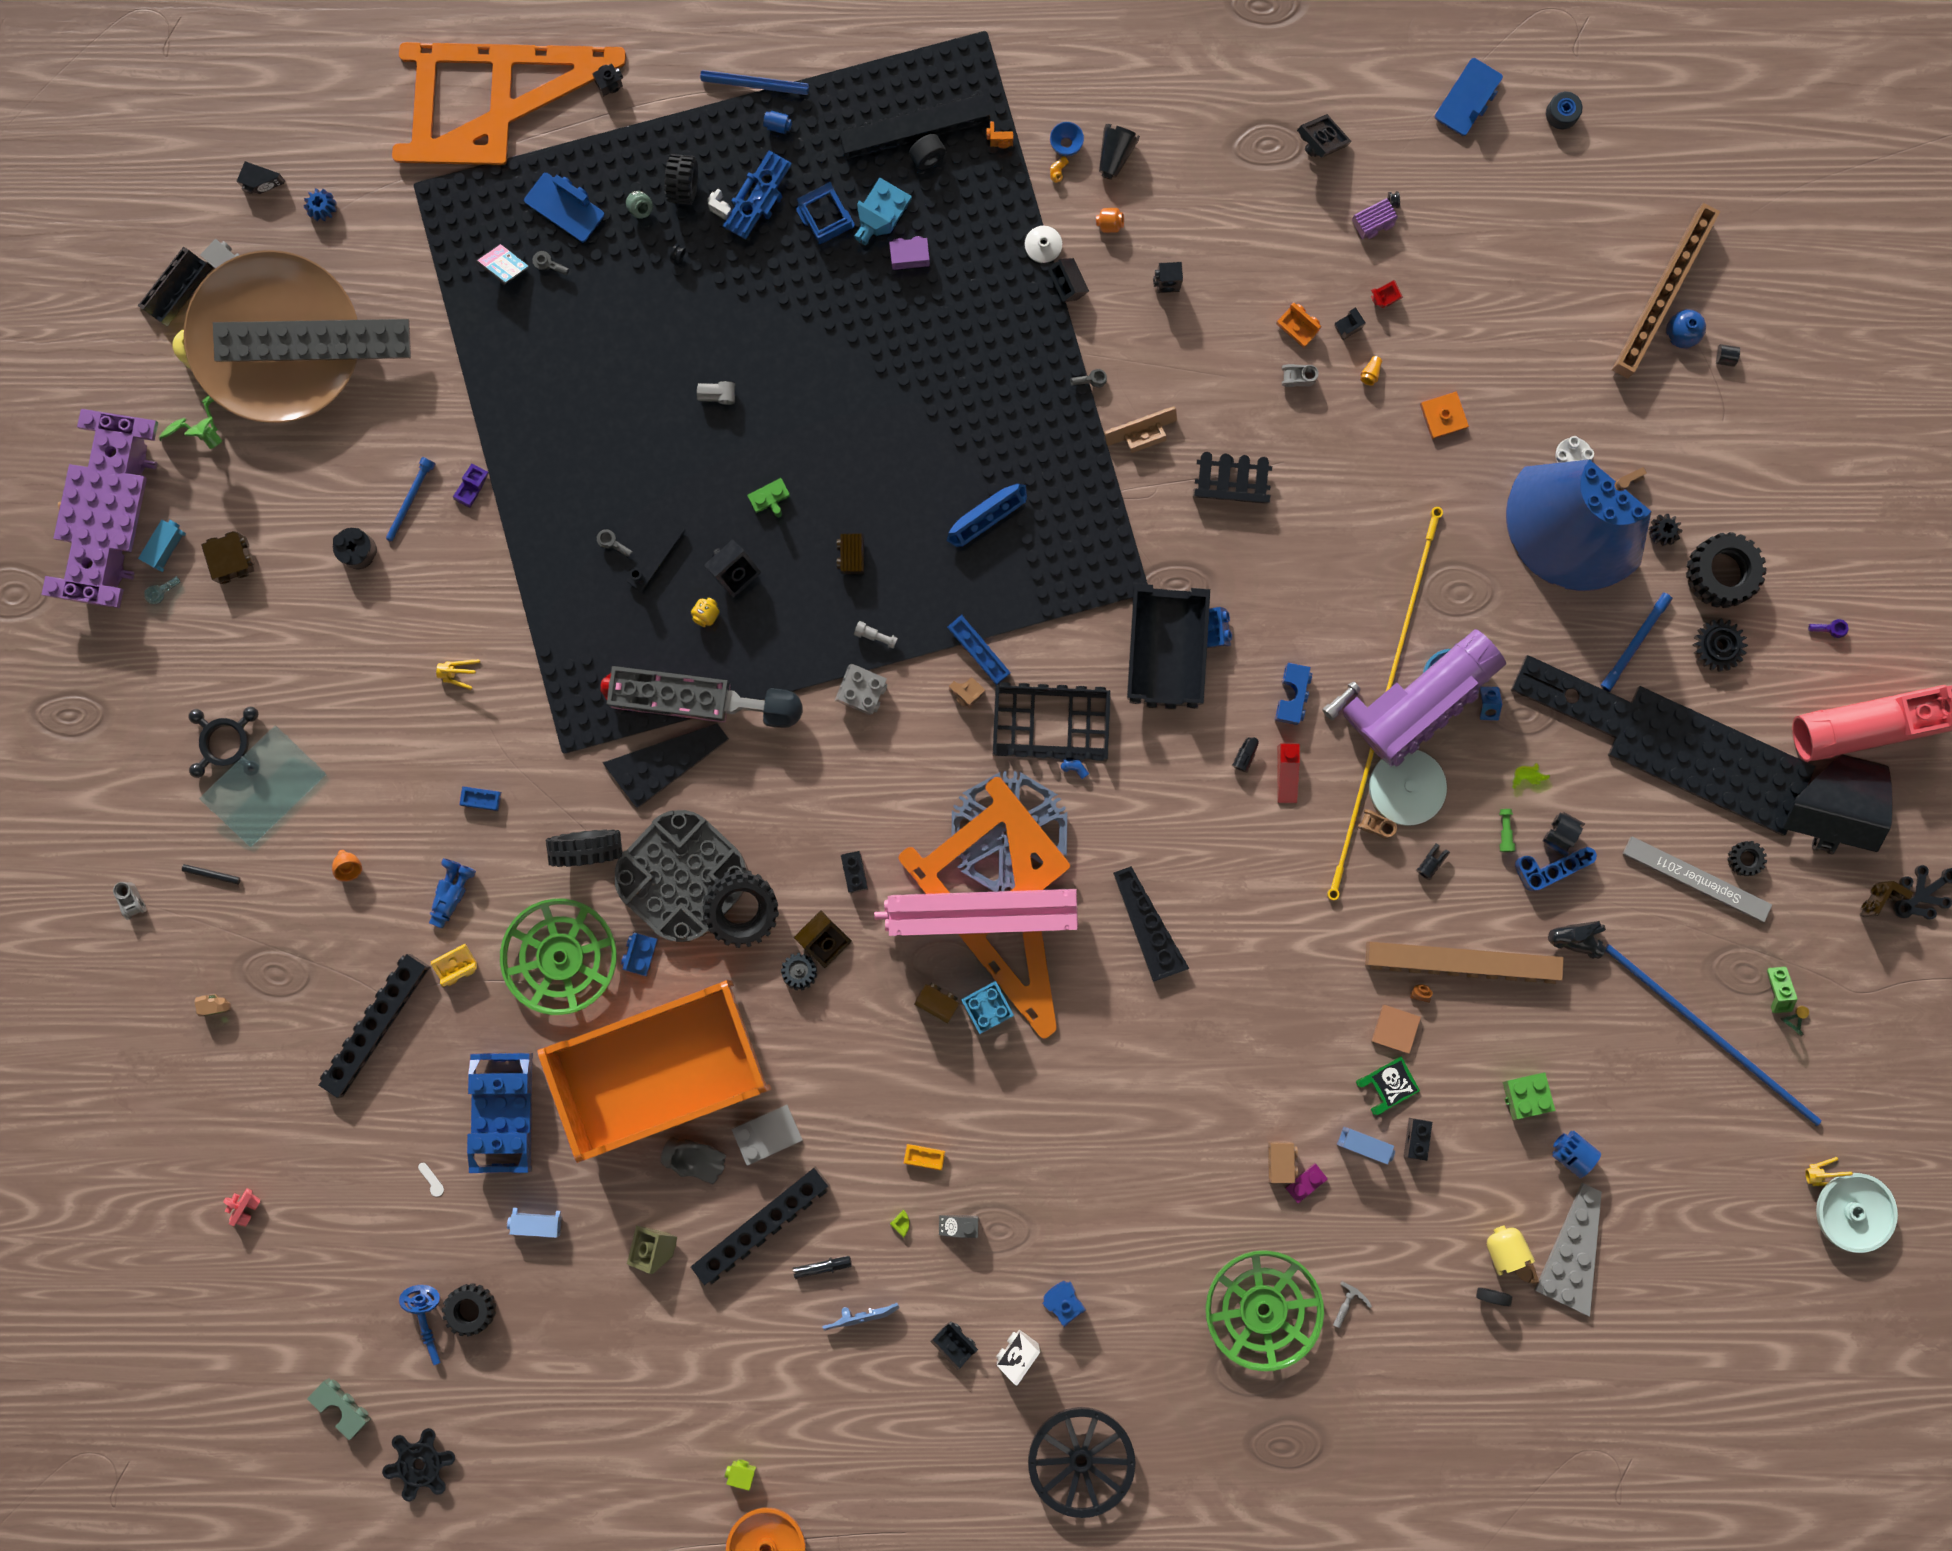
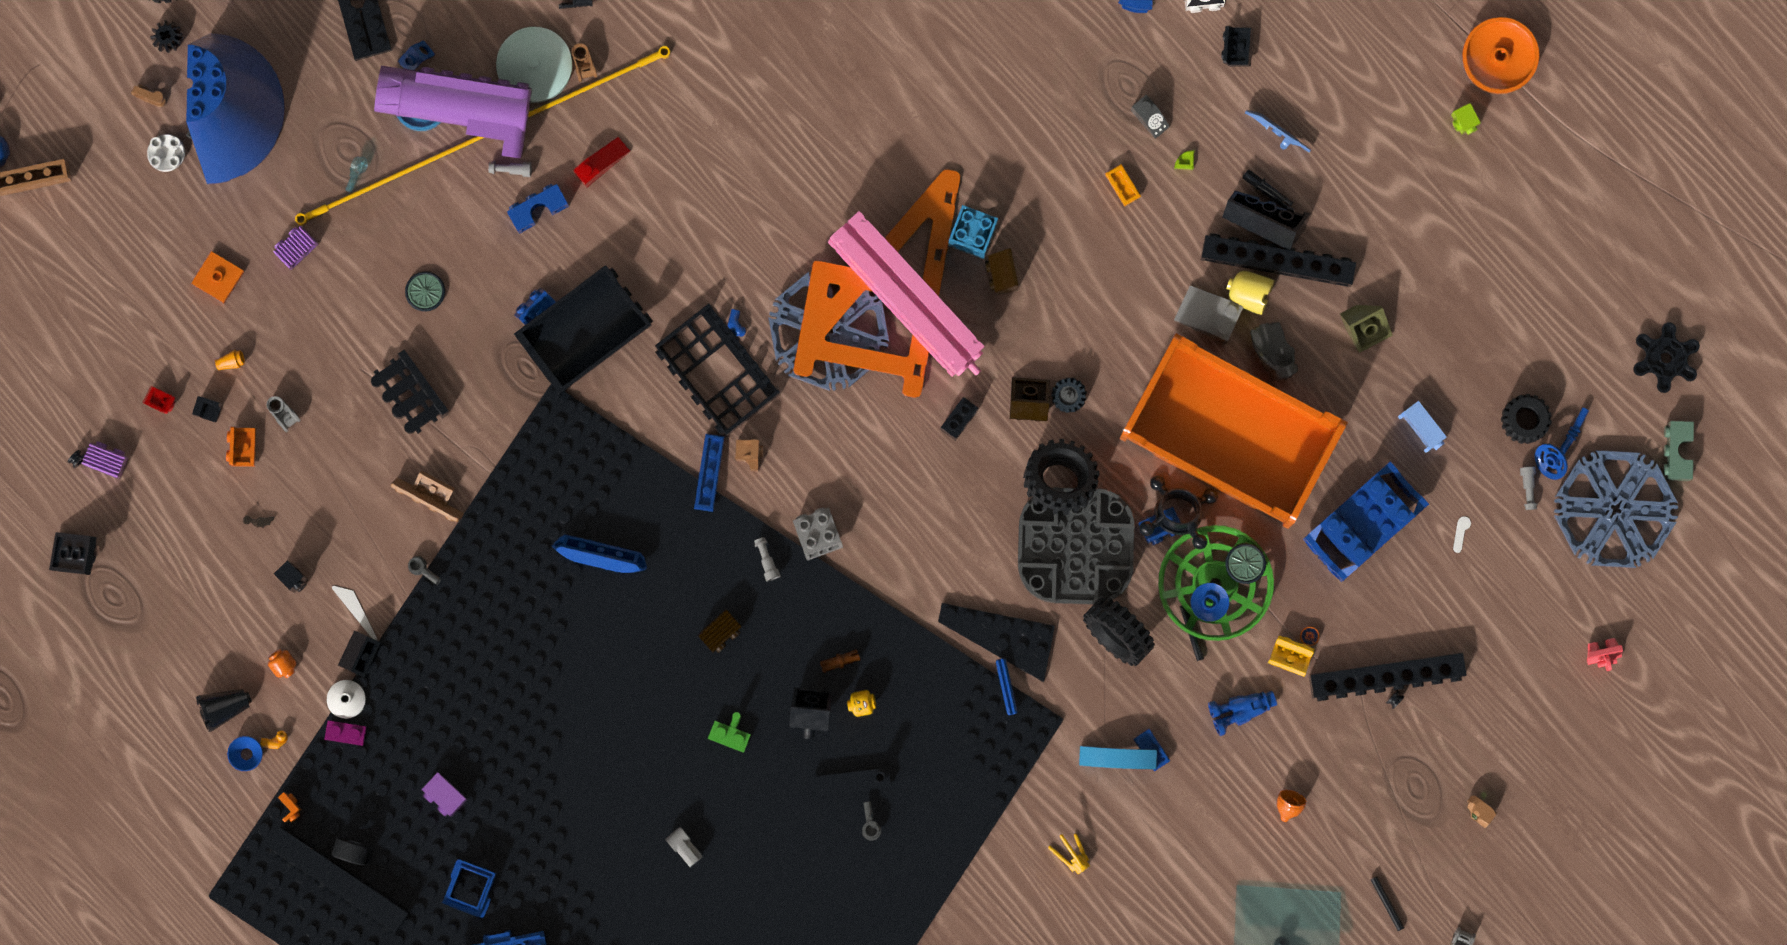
camera: 130 degrees left, 0 degrees up
(330, 1327) = (1632, 511): none -> sand blue plate
(351, 1015) = (1395, 699): none -> black bush
(427, 1272) = (1528, 484): none -> light grey piece
(457, 993) = (1309, 636): none -> dark blue tile
(494, 766) = (1118, 758): none -> dark azure slope
(528, 901) = (1194, 640): none -> black bar
(536, 933) = (1217, 595): none -> blue dish
(551, 991) = (1245, 563): none -> sand green wheel
(622, 730) = (1006, 686): none -> blue axle
(643, 940) = (1158, 484): none -> black piece
(694, 697) = (934, 651): dark grey piece -> none
(751, 624) = (840, 660): none -> reddish brown pin
(755, 1182) = (1250, 291): none -> light yellow cylinder
(799, 1245) = (1266, 219): none -> black wedge
(881, 210) = (428, 848): dark azure plate -> none
(1018, 222) = (345, 733): none -> magenta plate
(1114, 310) = (350, 600): none -> white sticker
(1153, 938) = (814, 154): black wing -> none
(1230, 293) = (259, 522): none -> clear smoke piece
(1246, 754) = (614, 204): black hinge -> none
(1301, 557) = (425, 291): none -> sand green wheel
(1418, 489) = (295, 247): none -> medium lavender brick
(1441, 588) = (358, 166): none -> clear light blue plate

